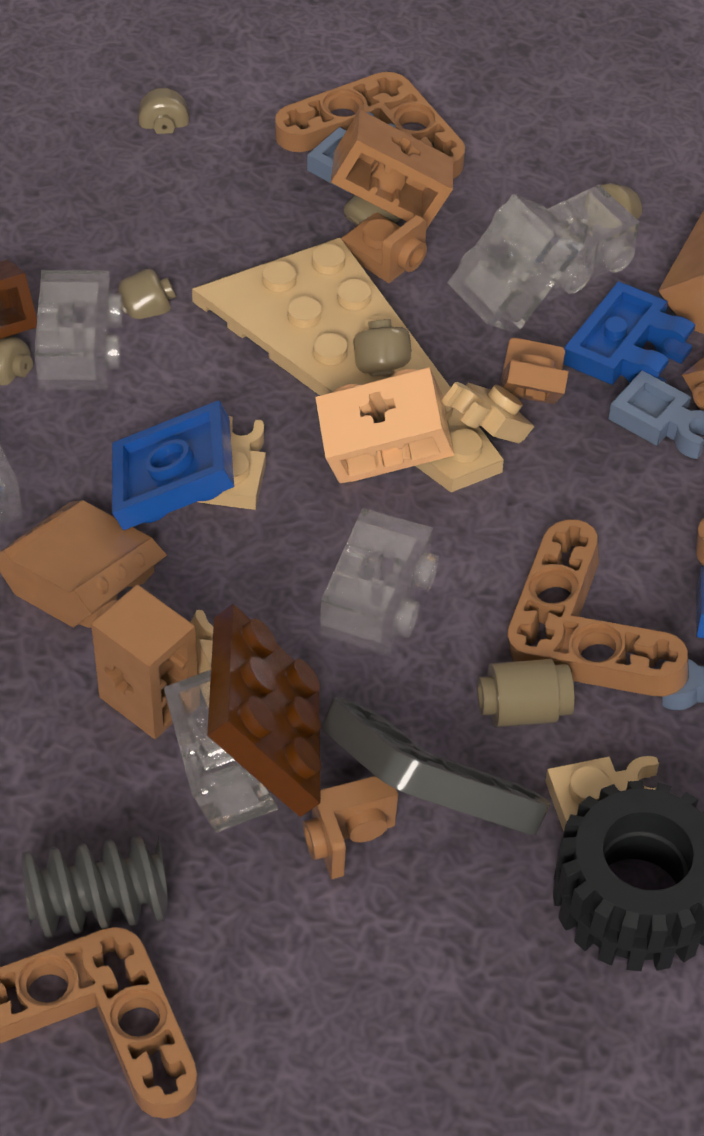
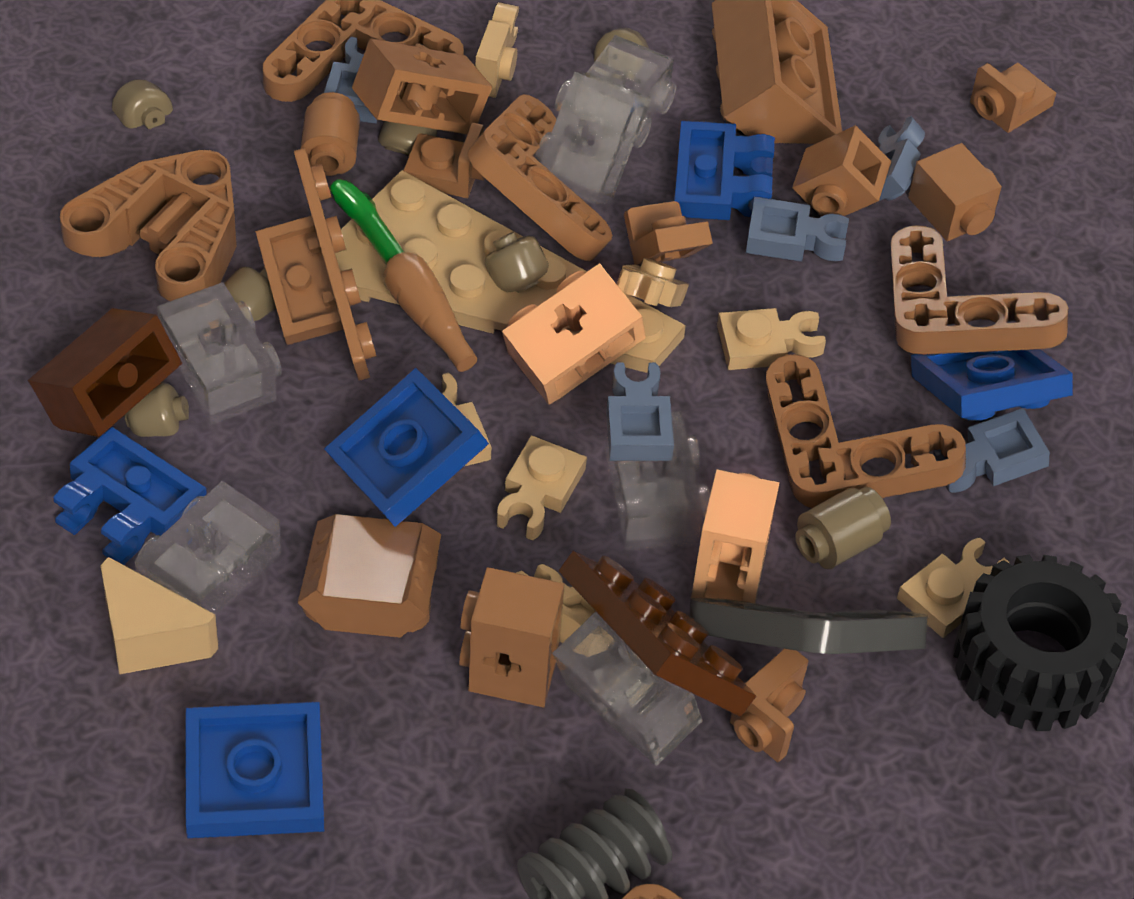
camera: 30 degrees left, 0 degrees up
(117, 199) = (160, 203): none -> medium nougat connector
(190, 291) = (306, 276): none -> medium nougat bracket
(273, 322) = (407, 277): none -> medium nougat piece
(281, 542) = (540, 479): none -> tan plate
(296, 186) = (331, 133): none -> medium nougat brick
(379, 518) = (638, 418): none -> sand blue plate
(402, 657) = (734, 537): none -> light nougat brick
(455, 327) = (507, 161): none -> medium nougat beam
(488, 165) = (495, 55): none -> tan plate
(573, 495) = (759, 337): none -> tan plate

